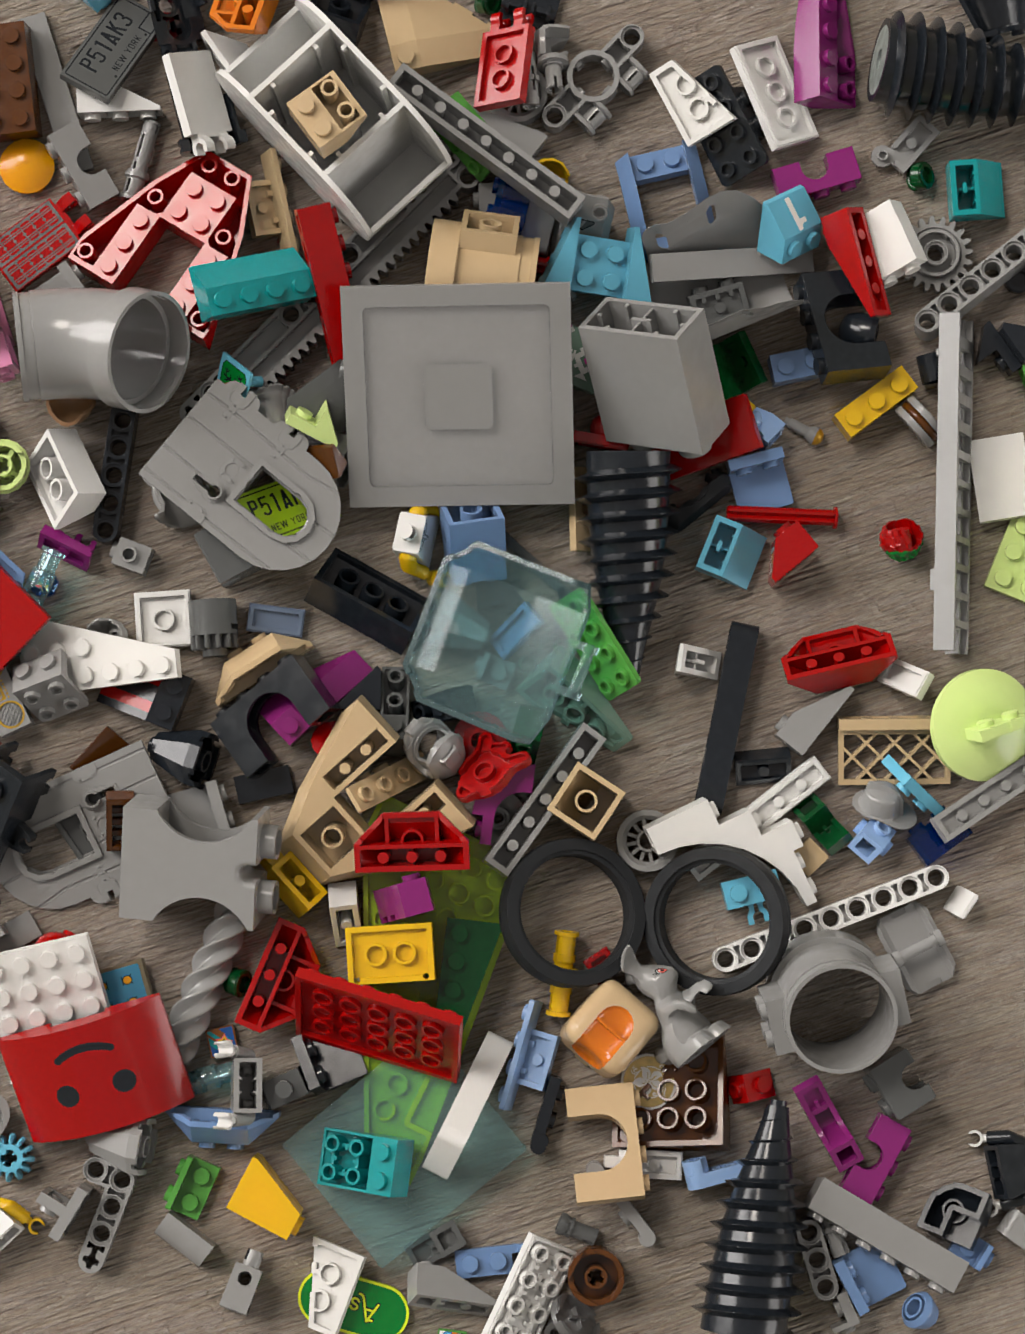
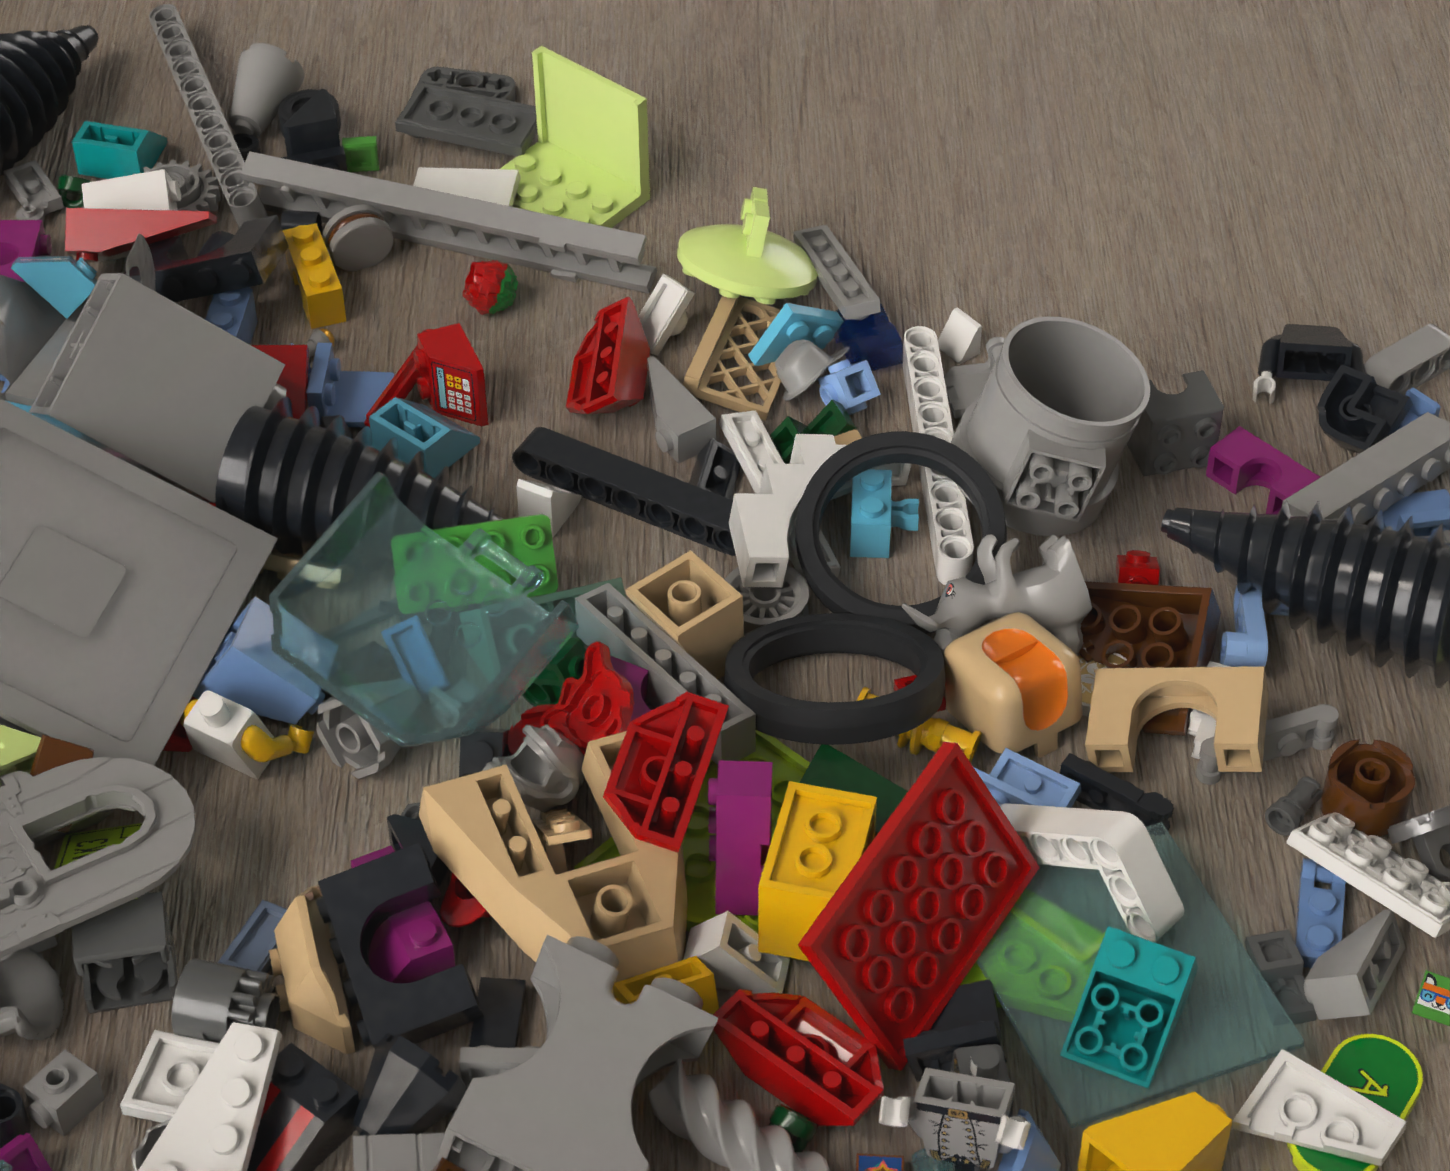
camera: 75 degrees left, 40 degrees down
(366, 600) = (292, 820): black slope -> none
(828, 1123) = (1233, 494): magenta arch -> none

